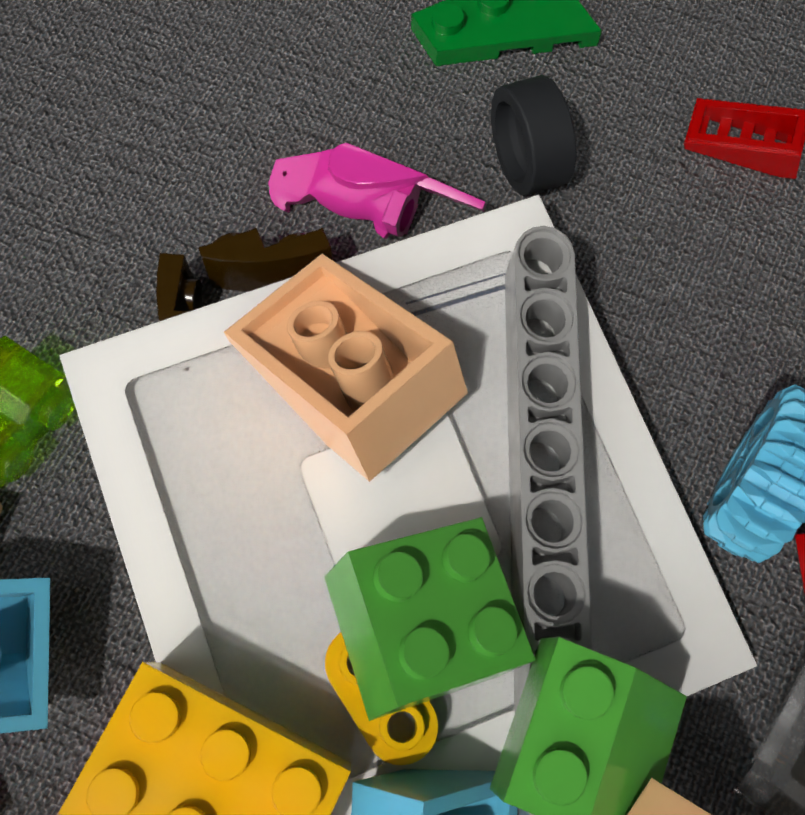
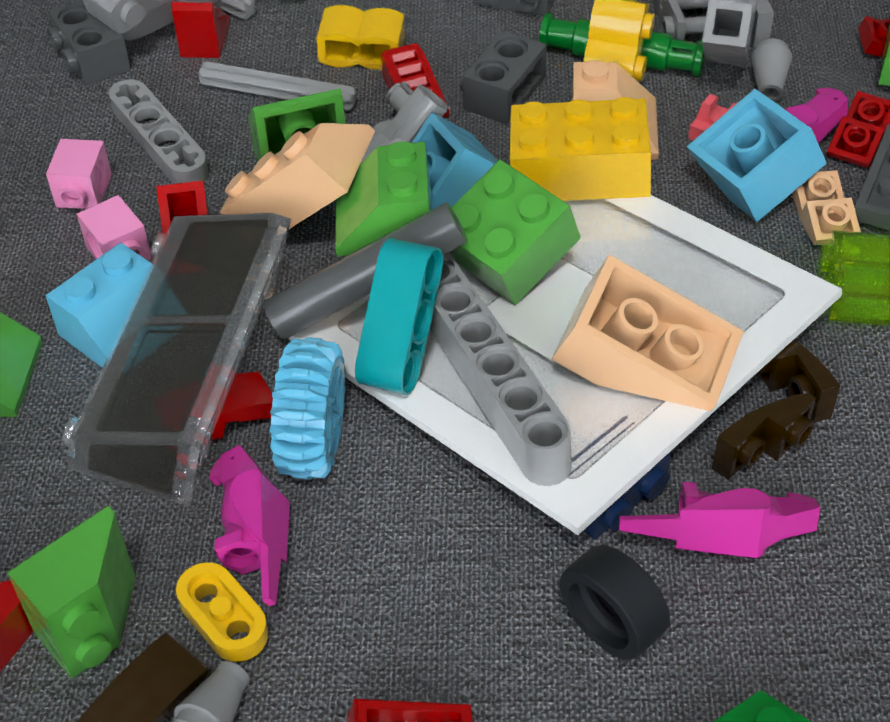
camera: 160 degrees right, 20 degrees down
(642, 515) = (398, 316): none -> teal beam
(650, 626) = (353, 275): none -> dark grey piece

